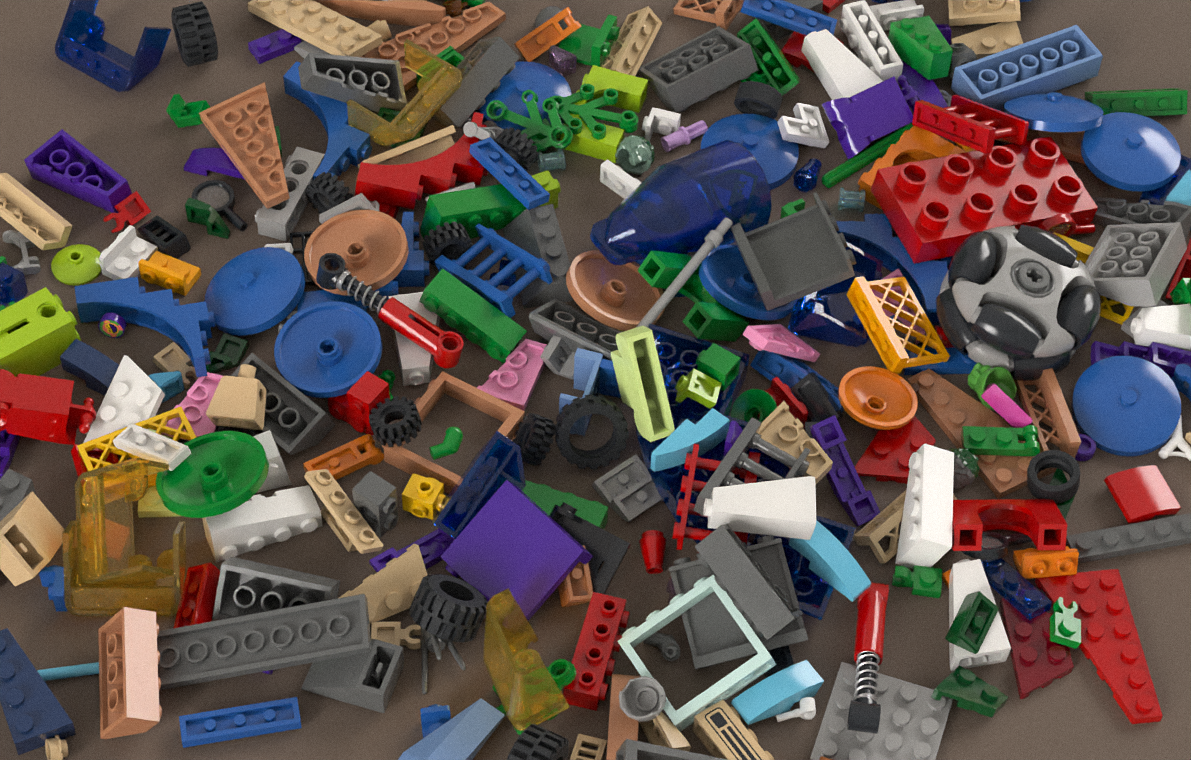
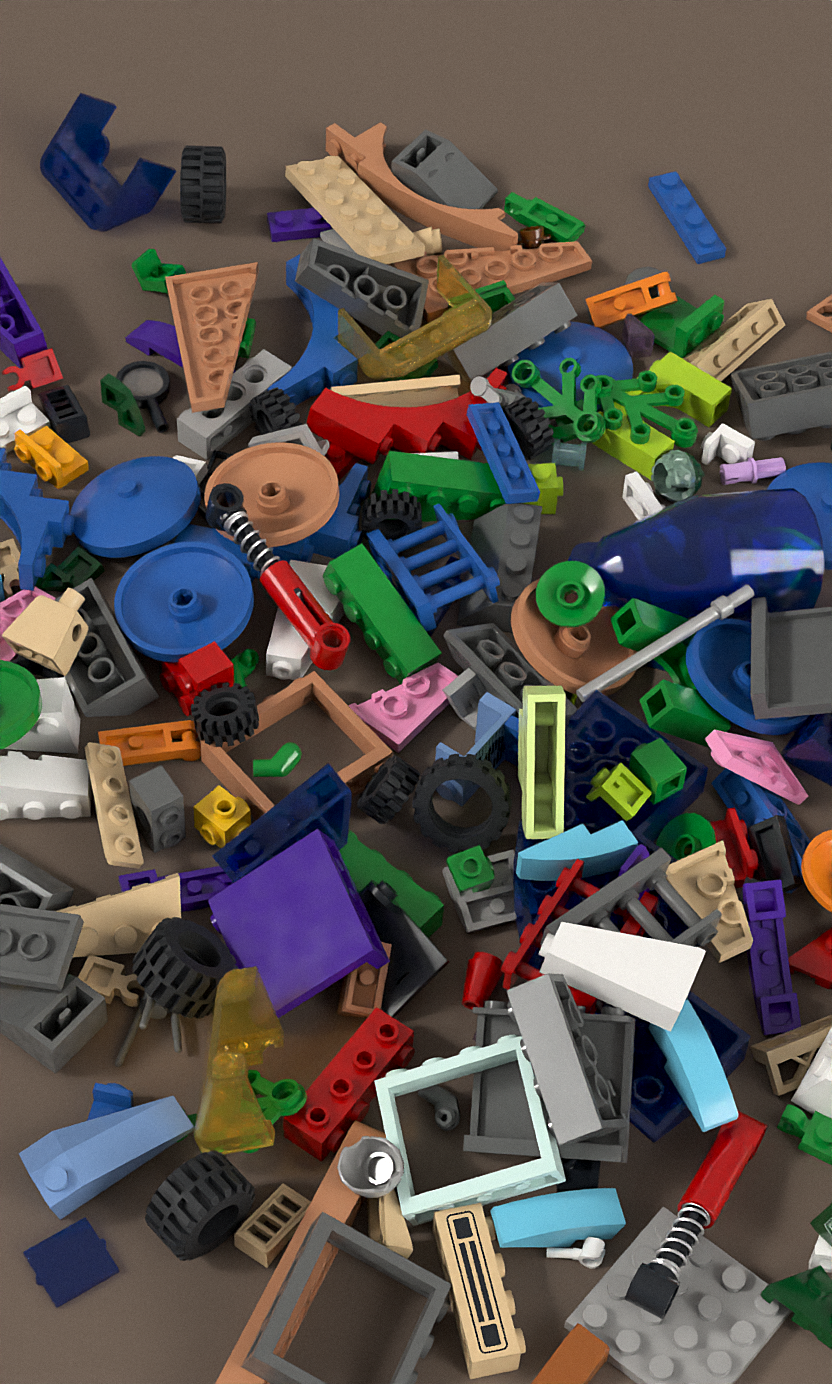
camera: 20 degrees right, 0 degrees up
(604, 249) = (568, 579): none -> green dish
(618, 476) = (471, 870): none -> green bracket

